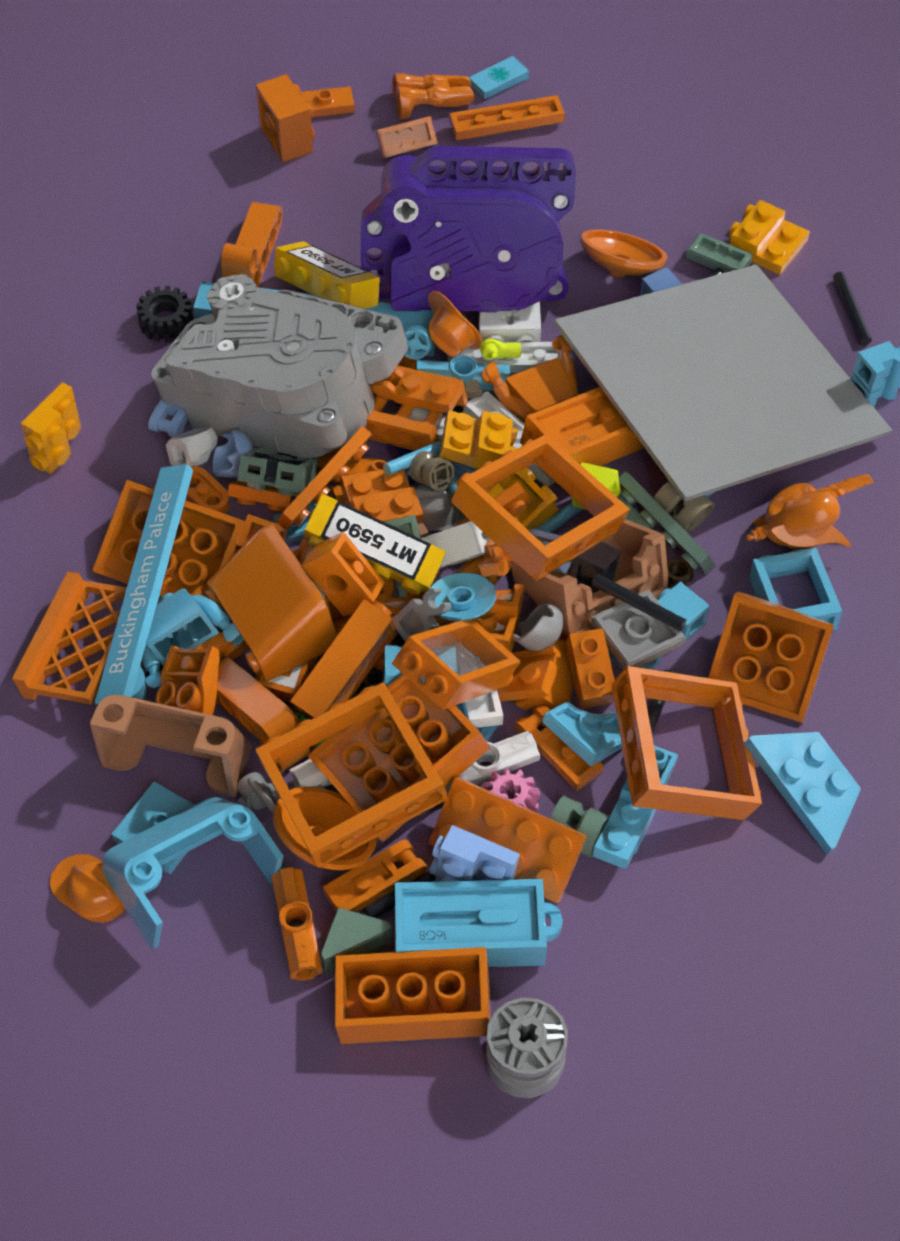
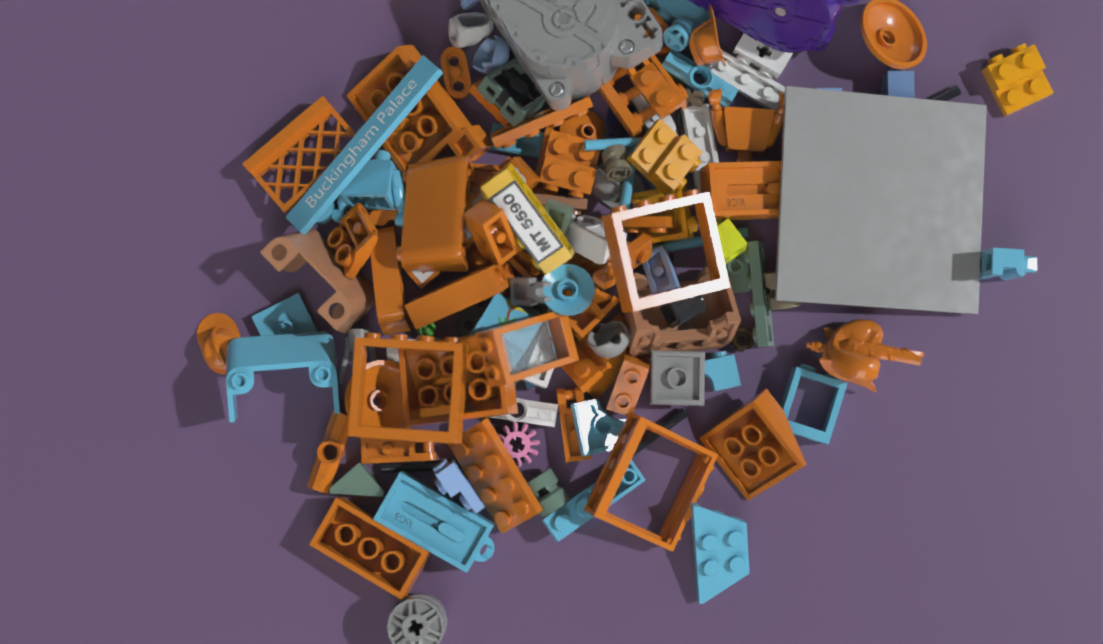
camera: 30 degrees right, 30 degrees up
(495, 349) = (737, 74): neon yellow arm -> none
(639, 602) = (688, 361): black bar -> none
(717, 254) = (967, 75): sand green plate -> none
(852, 308) = (1033, 183): black bar -> none

